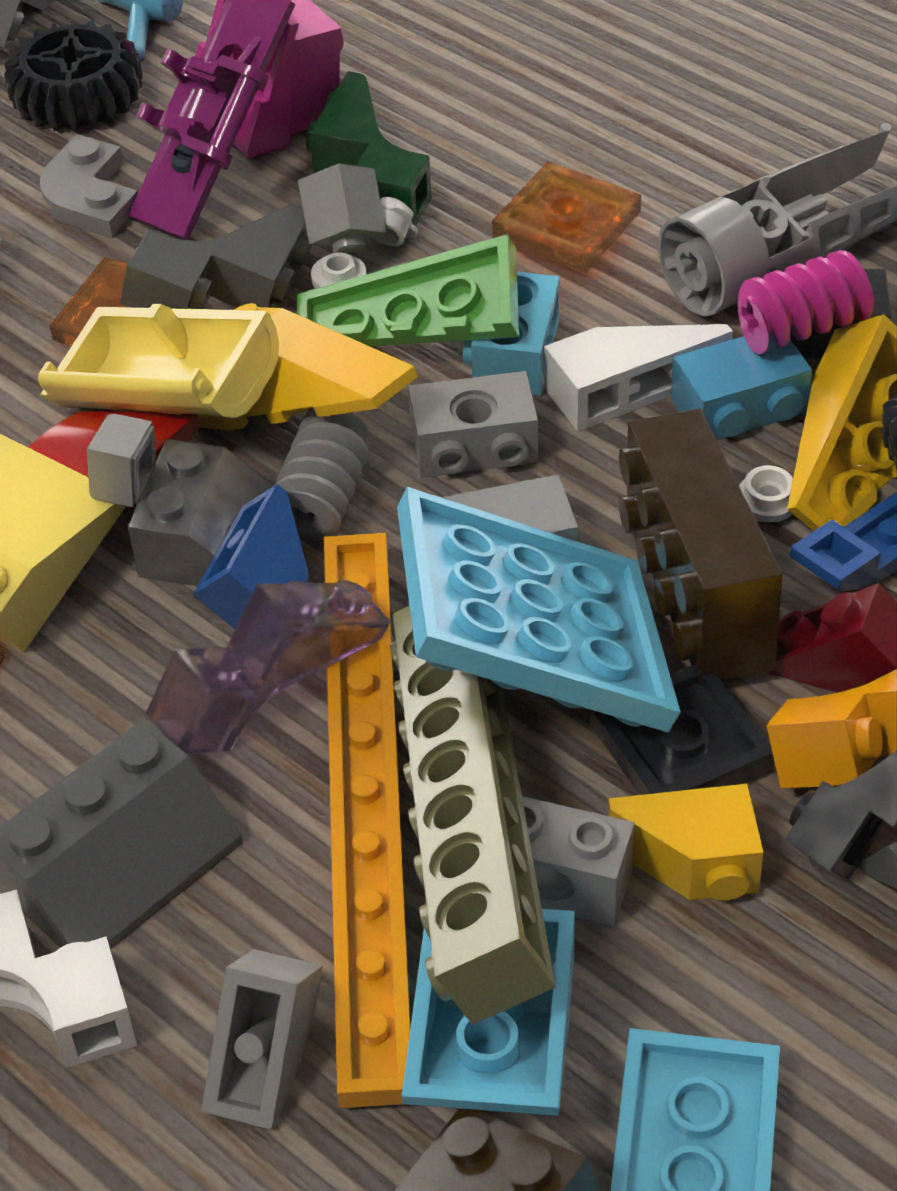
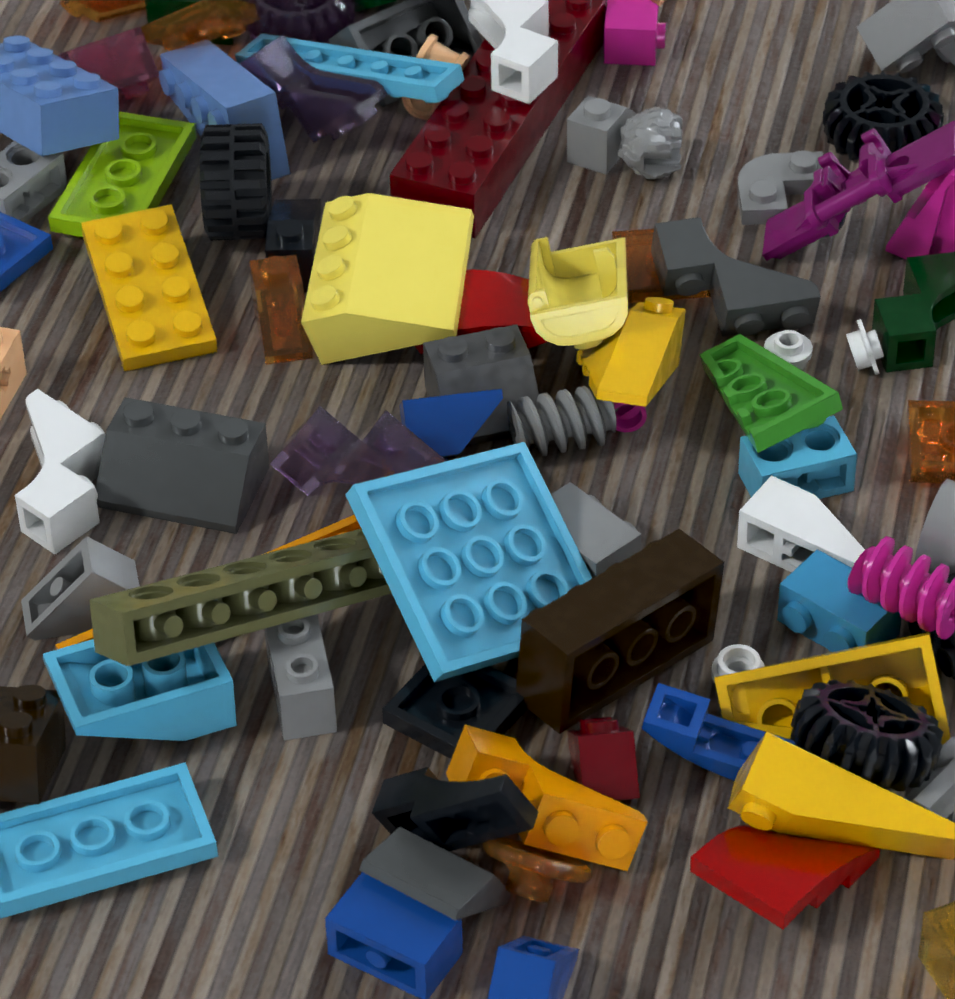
camera: 60 degrees right, 5 degrees down
(121, 459) = (465, 305): light grey slope -> none
(342, 207) = (832, 310): light grey brick -> none
(473, 424) = (679, 479): light grey brick -> none
(696, 840) = (366, 742): yellow slope -> none

